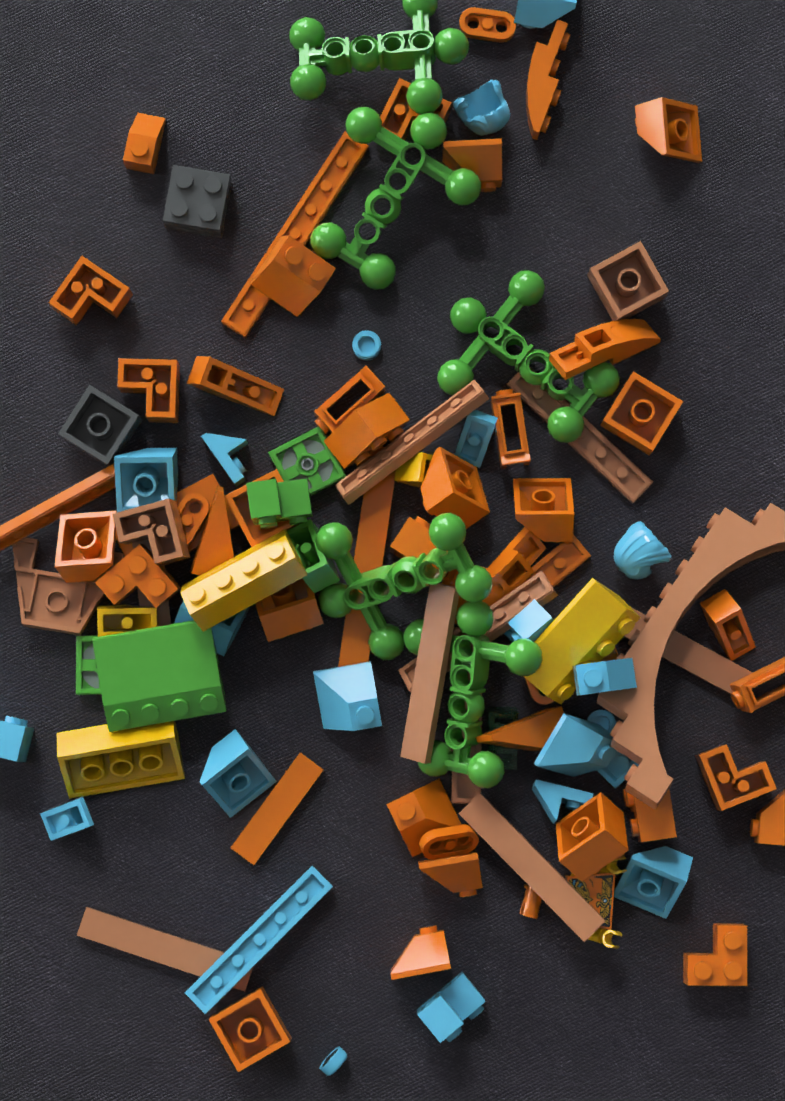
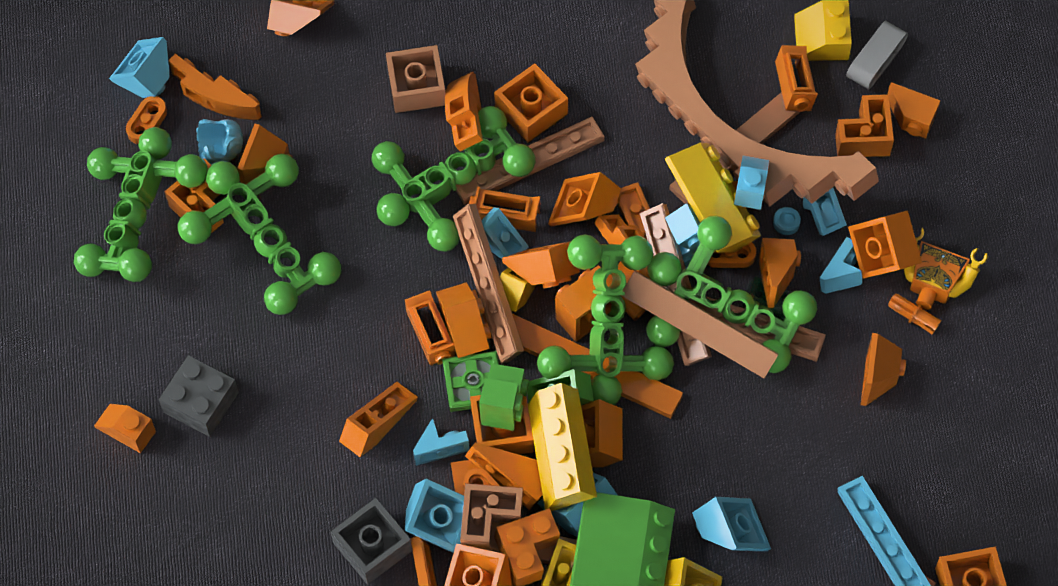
camera: 70 degrees left, 20 degrees down
(87, 285) = (237, 510): orange brick -> none
(157, 380) = (350, 478): orange brick -> none
(277, 808) = (776, 505): orange tile -> none
(292, 275) = (299, 335): orange slope -> none
(300, 224) = (263, 330): orange tile -> none
(333, 1061) = (1021, 526): medium azure tile -> none
(348, 697) = (696, 409): medium azure slope -> none
(366, 345) = (385, 302): medium azure tile -> none
(422, 811) = (823, 385): orange slope -> none
(423, 954) = (947, 417): slope -> none
(449, 841) = (852, 367): orange plate -> none
(450, 1006) = (1001, 411): medium azure brick -> none
(532, 867) = (895, 304): nougat tile -> none
(576, 747) = (804, 233): medium azure slope -> none
(639, 551) = (649, 139): medium azure hair -> none
(651, 823) = (883, 197): orange brick -> none
(654, 880) = (938, 214): medium azure slope -> none
(725, 965) = (1021, 183): orange brick -> none
(728, 624) = (733, 95): orange slope -> none

